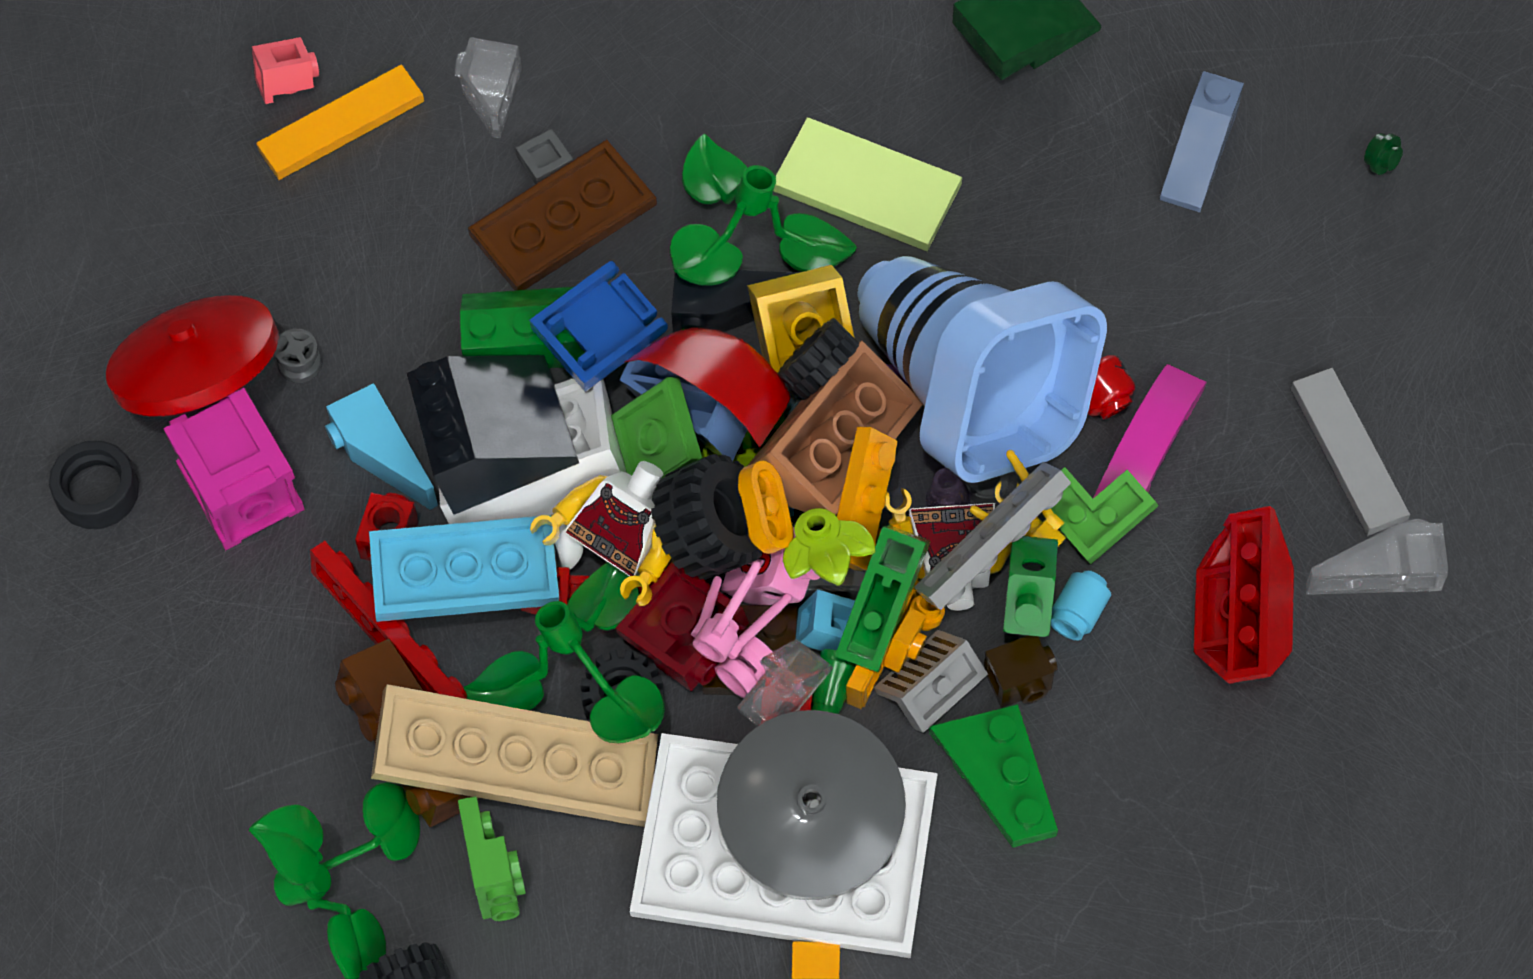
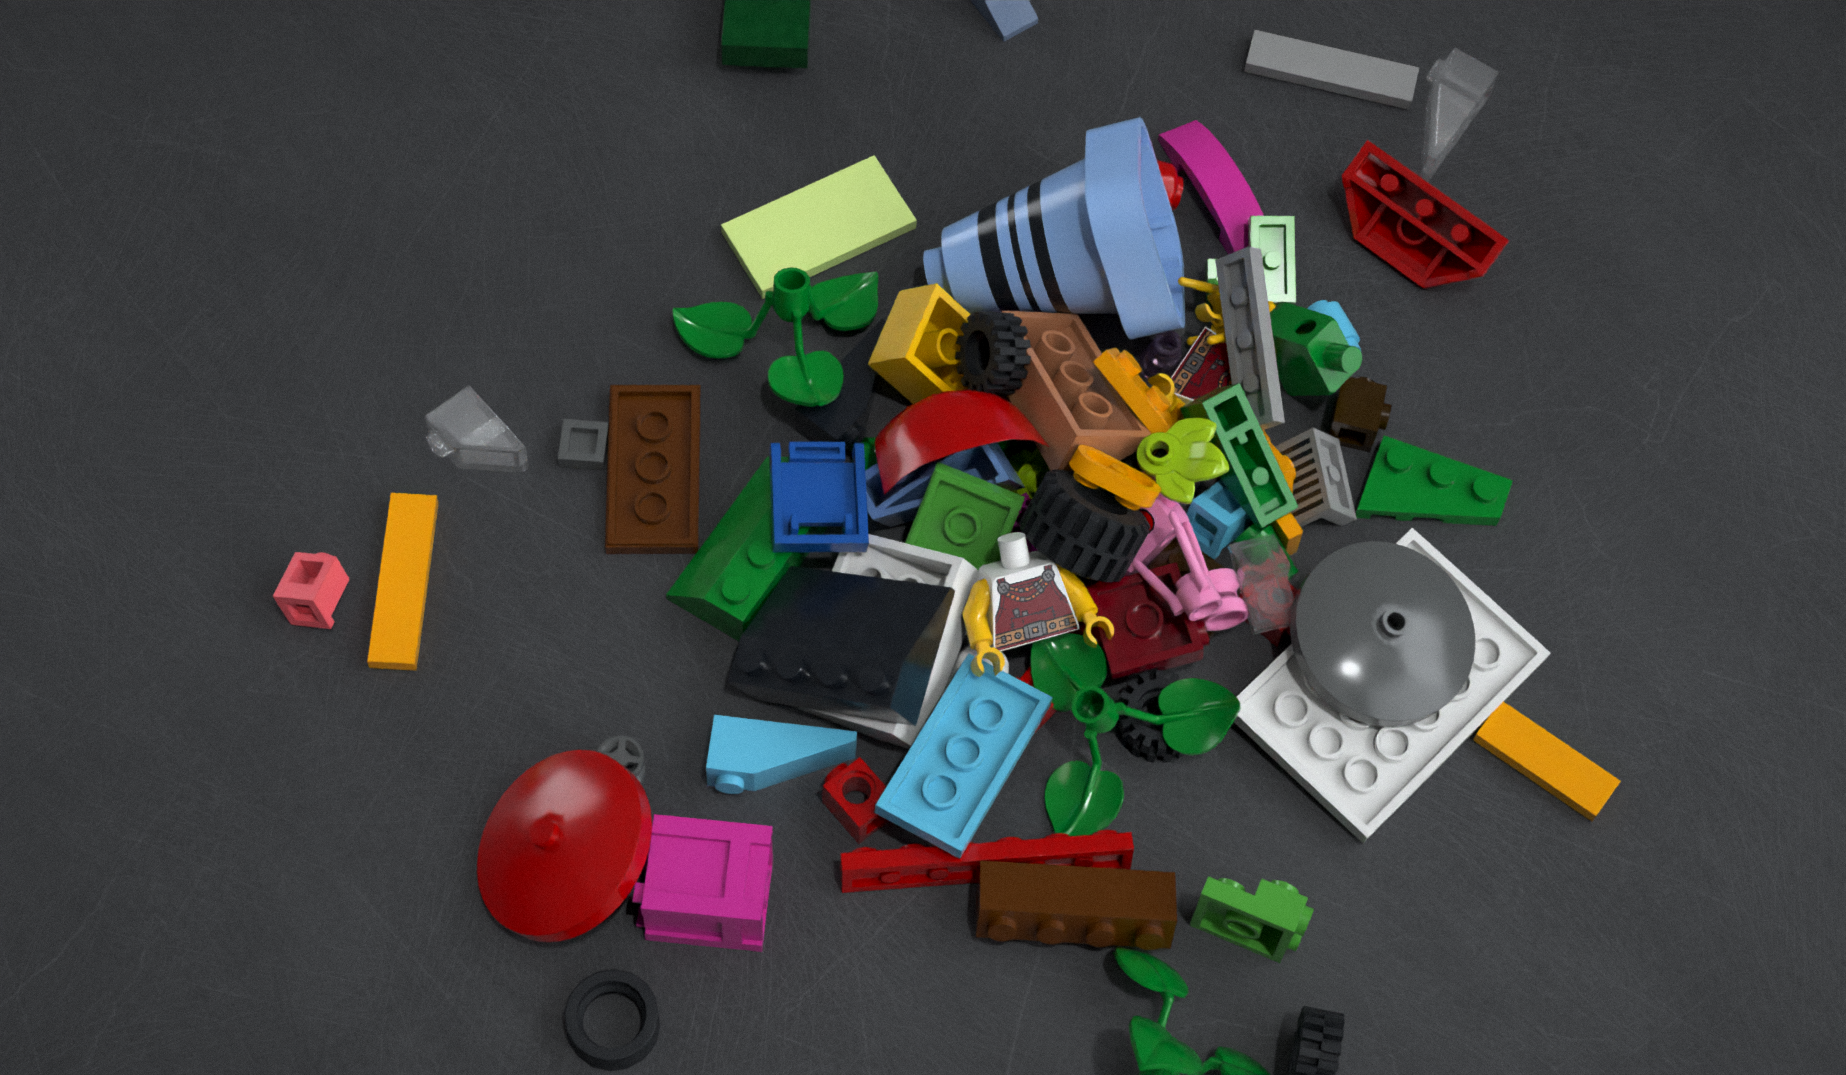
camera: 60 degrees left, 0 degrees up
(511, 756) = (1169, 835): tan plate -> none

